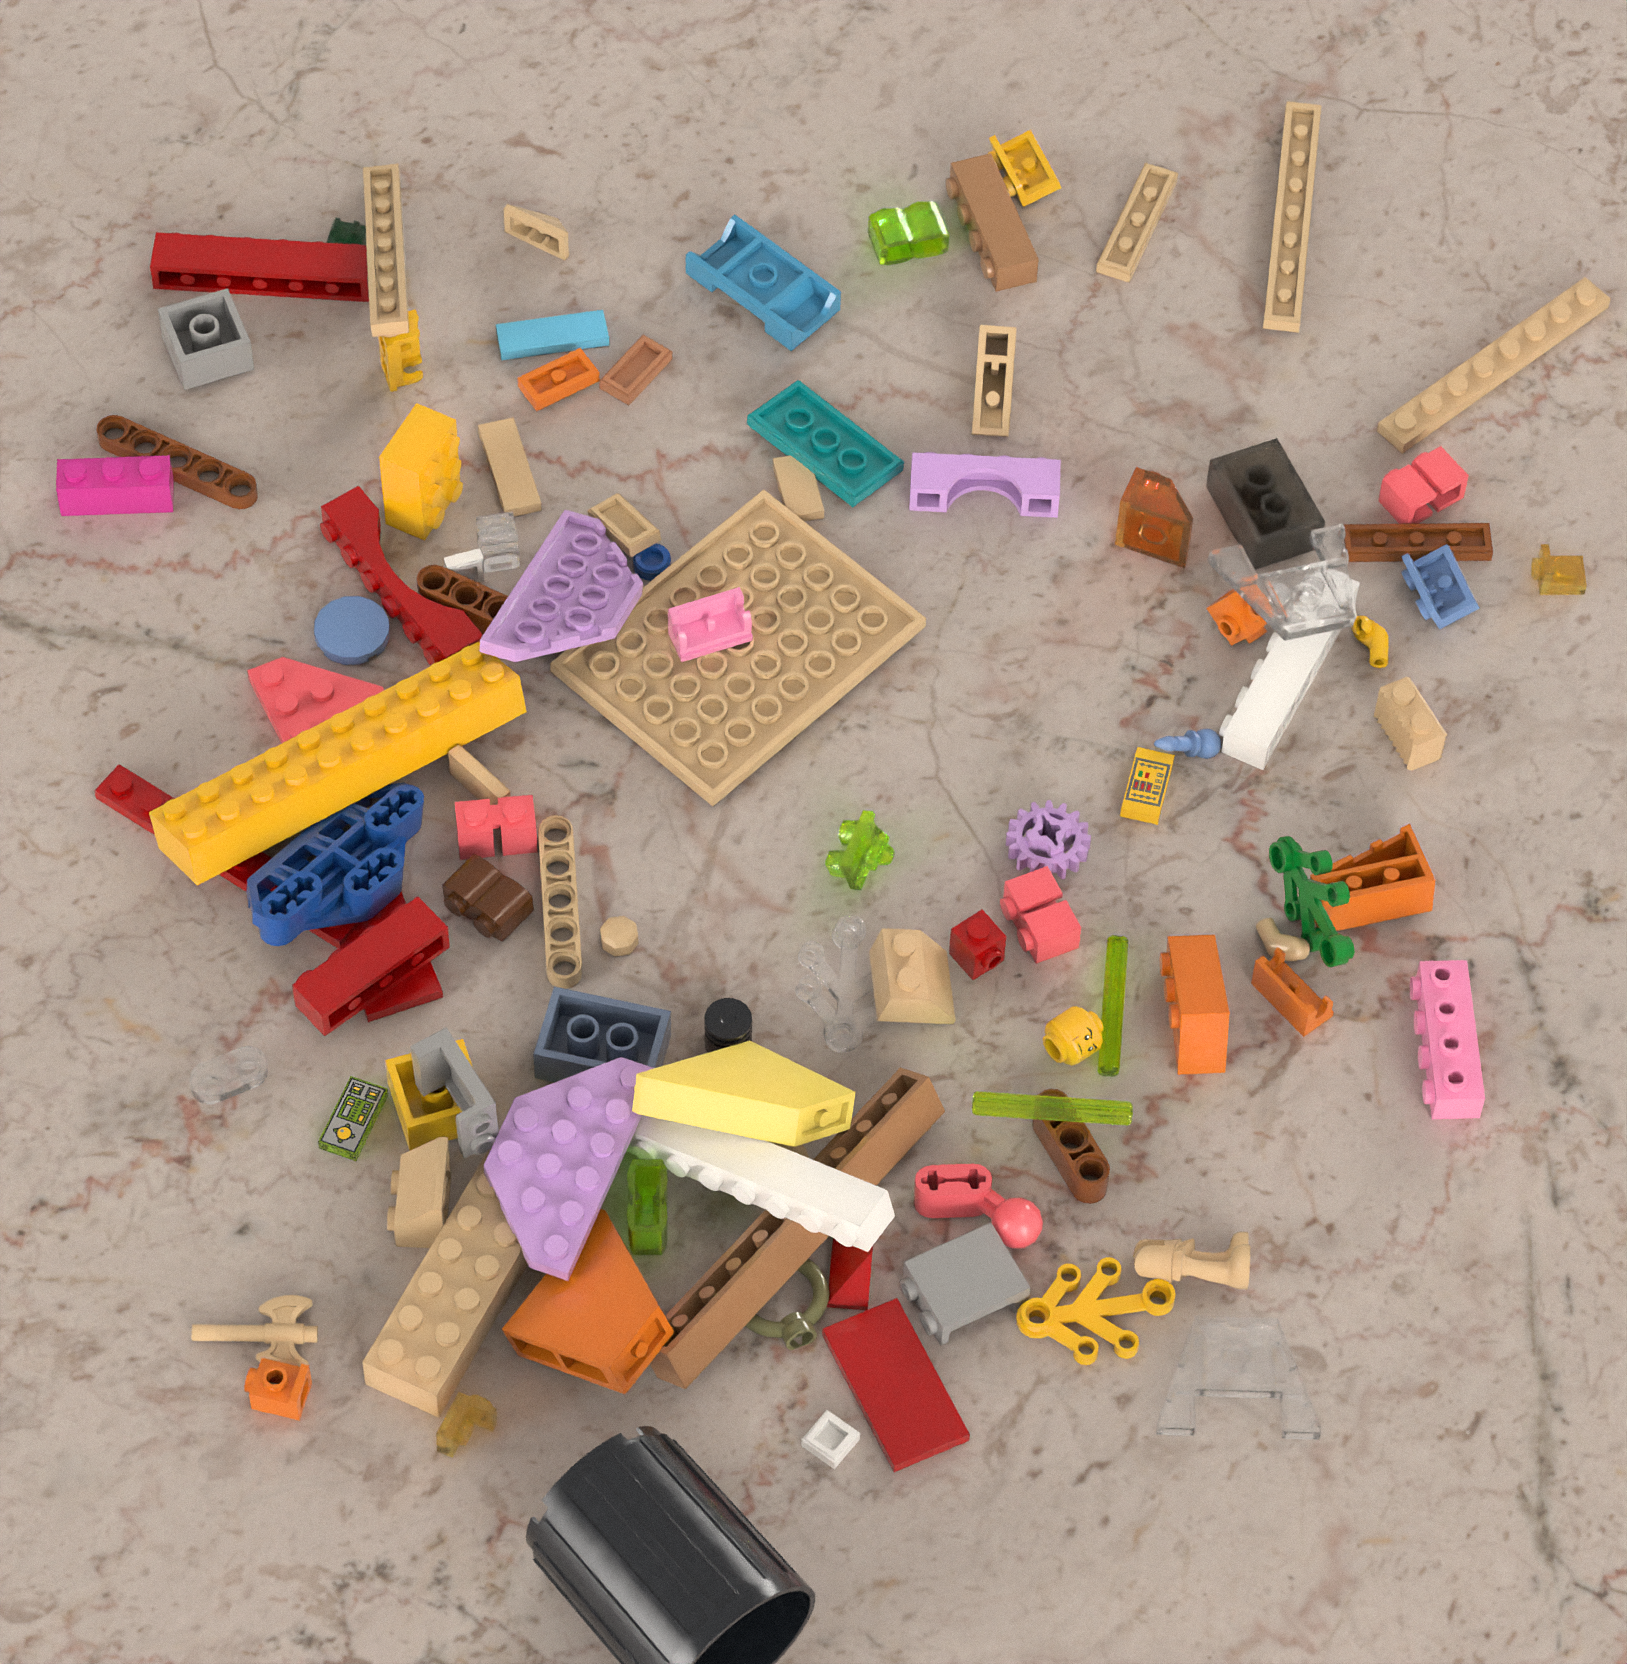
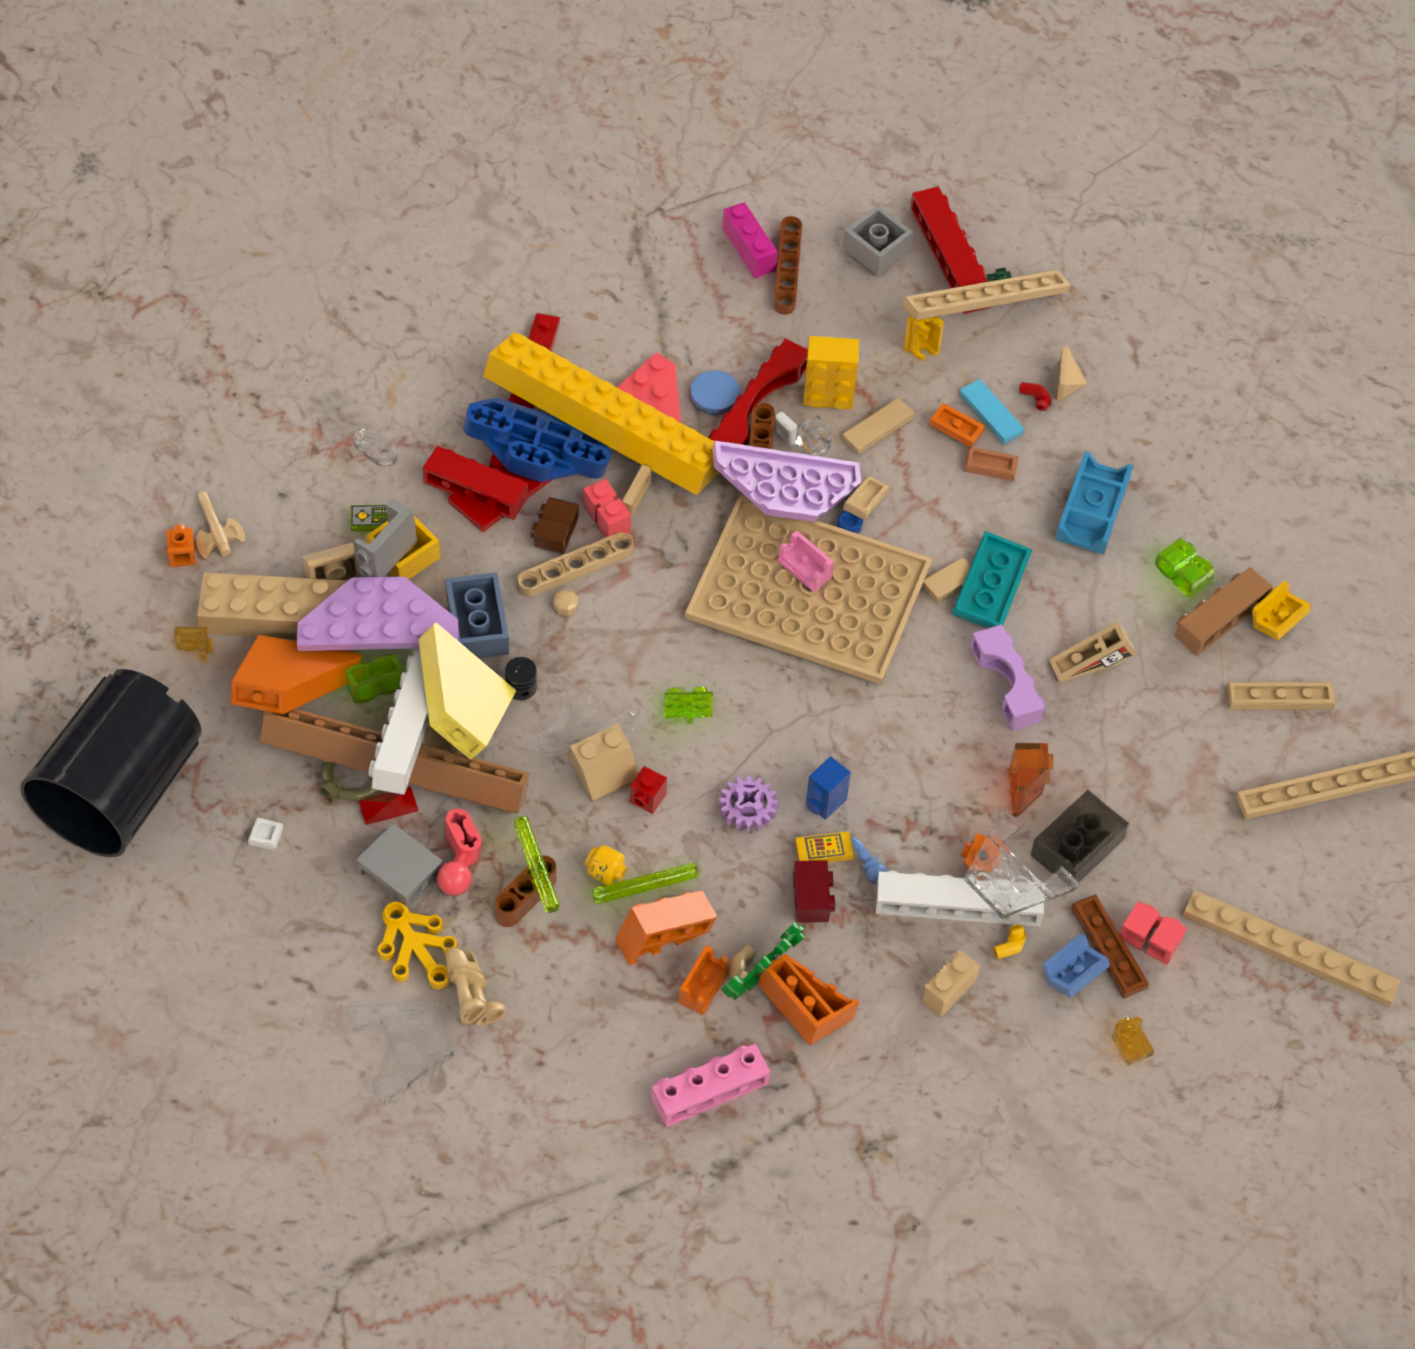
camera: 65 degrees right, 0 degrees up
(553, 270) = (1042, 397): none -> red arm
(895, 1385) = (317, 855): red tile -> none
(1041, 922) = (694, 812): coral piece -> none
(1075, 737) = (827, 788): none -> blue brick
(1211, 820) = (812, 891): none -> dark red brick

